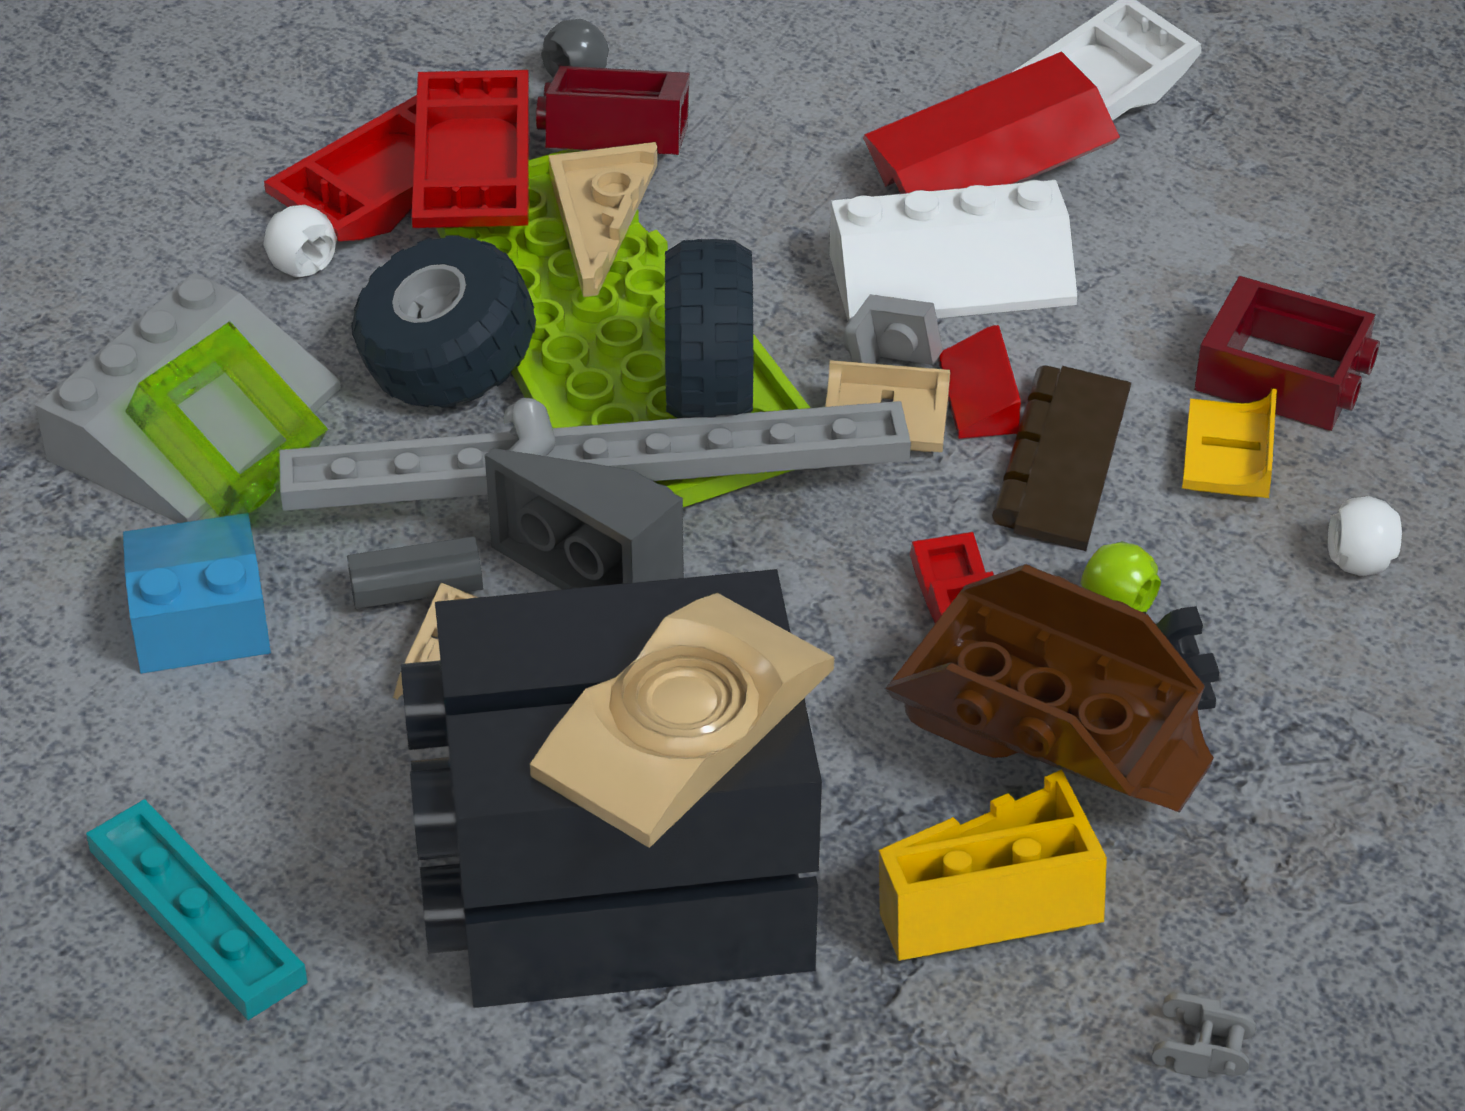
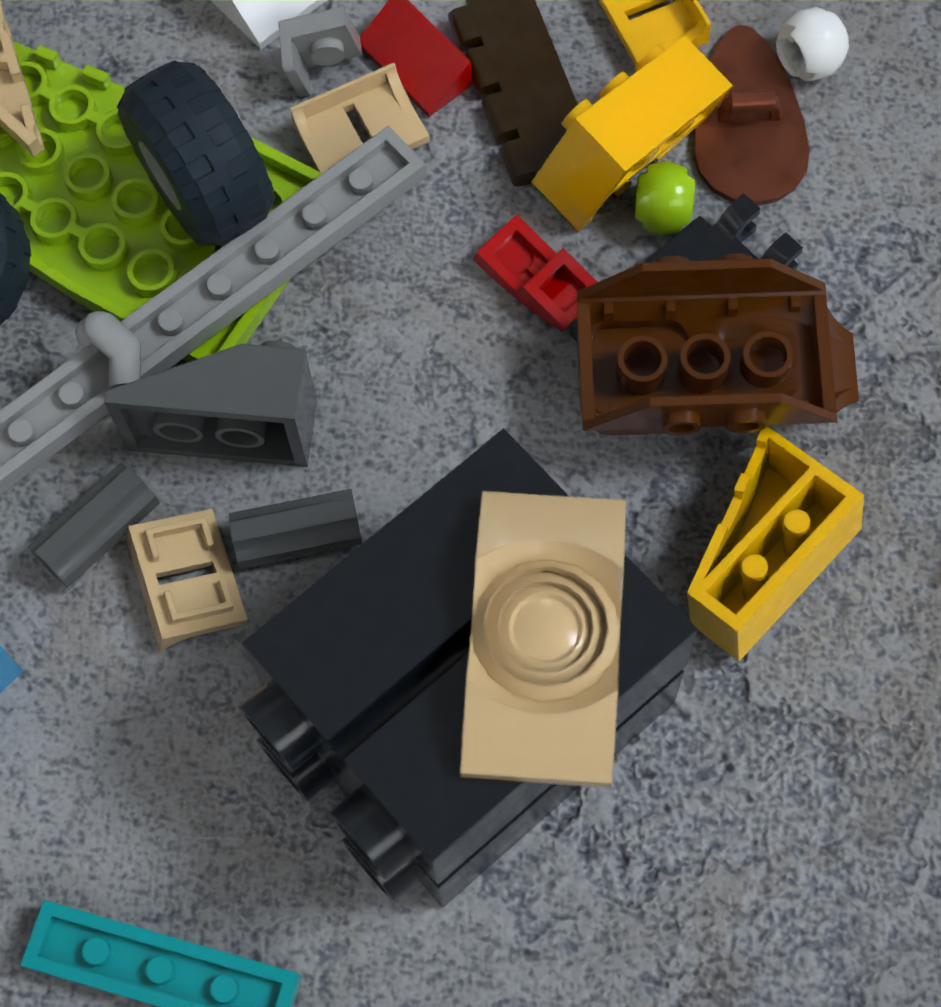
camera: 30 degrees left, 25 degrees up
(1153, 499) = (629, 128): none -> yellow wedge
(1260, 577) = (757, 132): none -> copper shield

